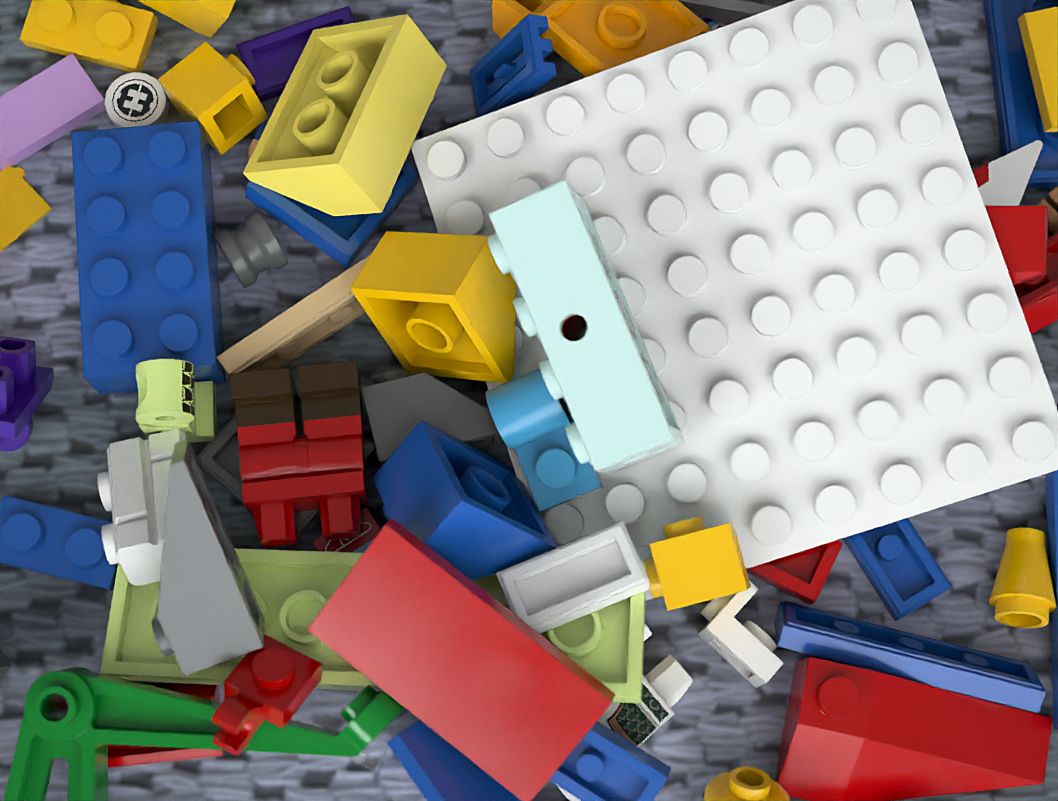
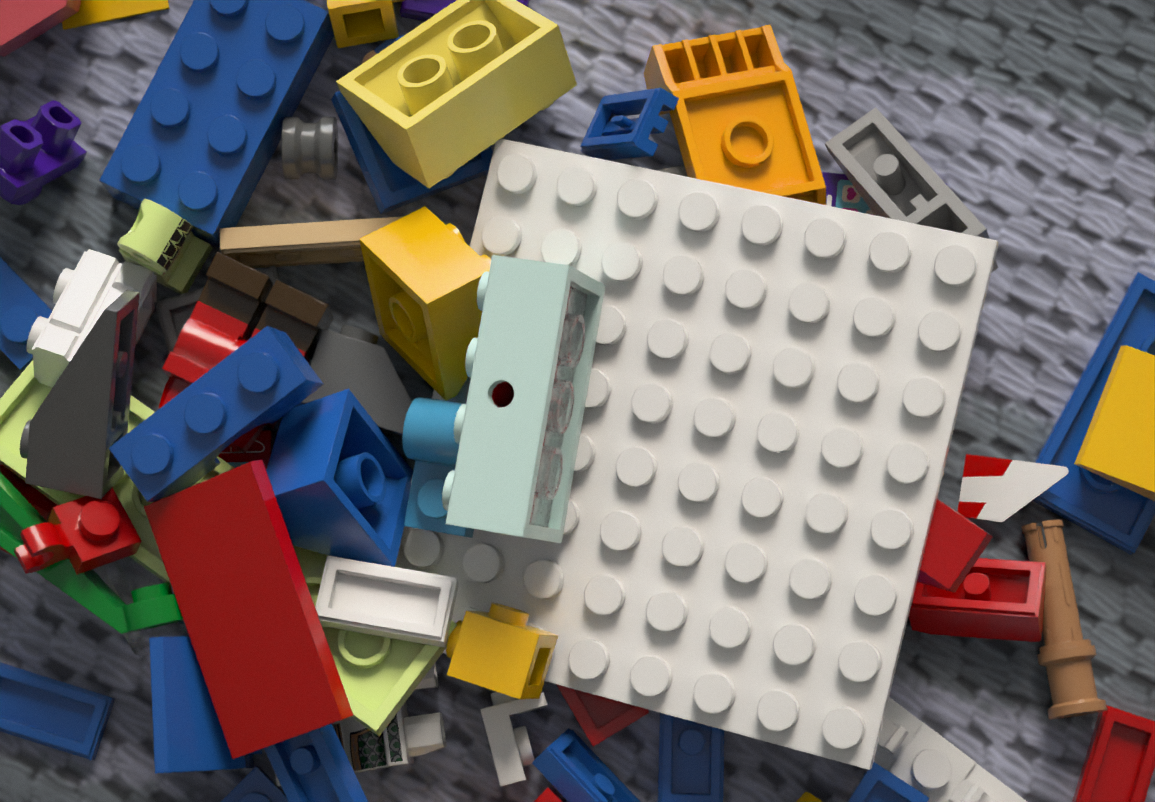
camera: 40 degrees right, 5 degrees up
(319, 509) = (236, 395): none -> blue arch

